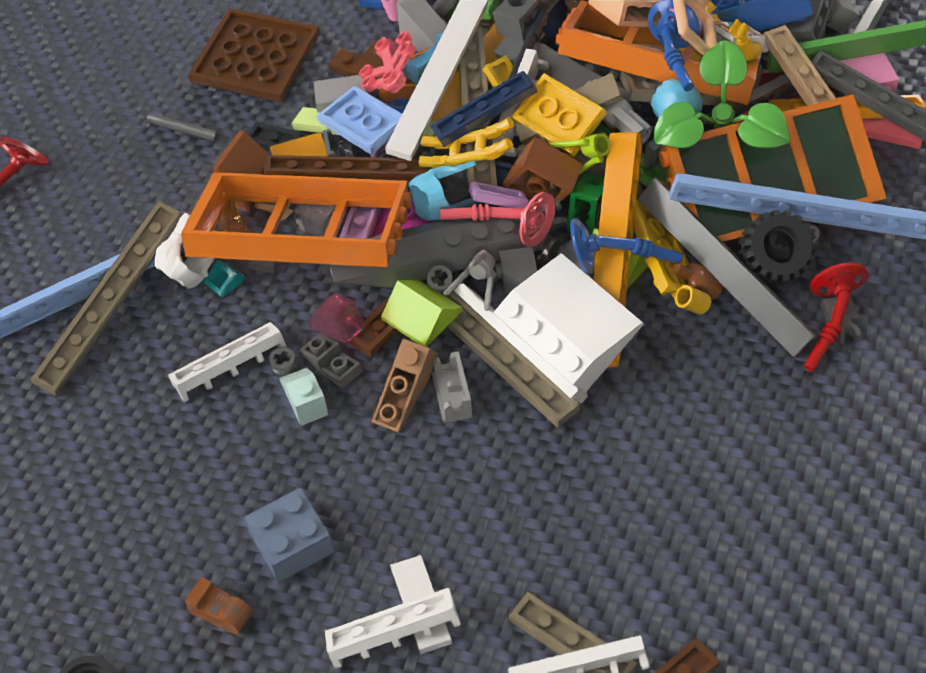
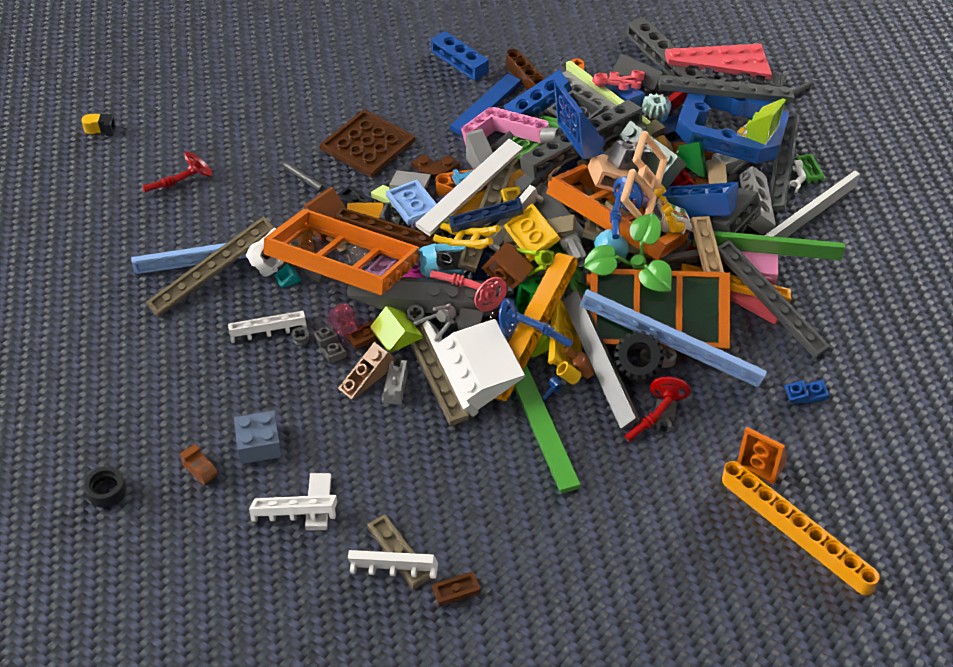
camera: 15 degrees right, 5 degrees down
(304, 396) = (303, 361): light aqua slope -> none
(394, 62) = (451, 165): coral plant -> none
(497, 195) = (472, 272): lavender tile -> none
(675, 321) = (555, 385): none -> blue hand
(702, 402) = (546, 434): none -> bright green tile

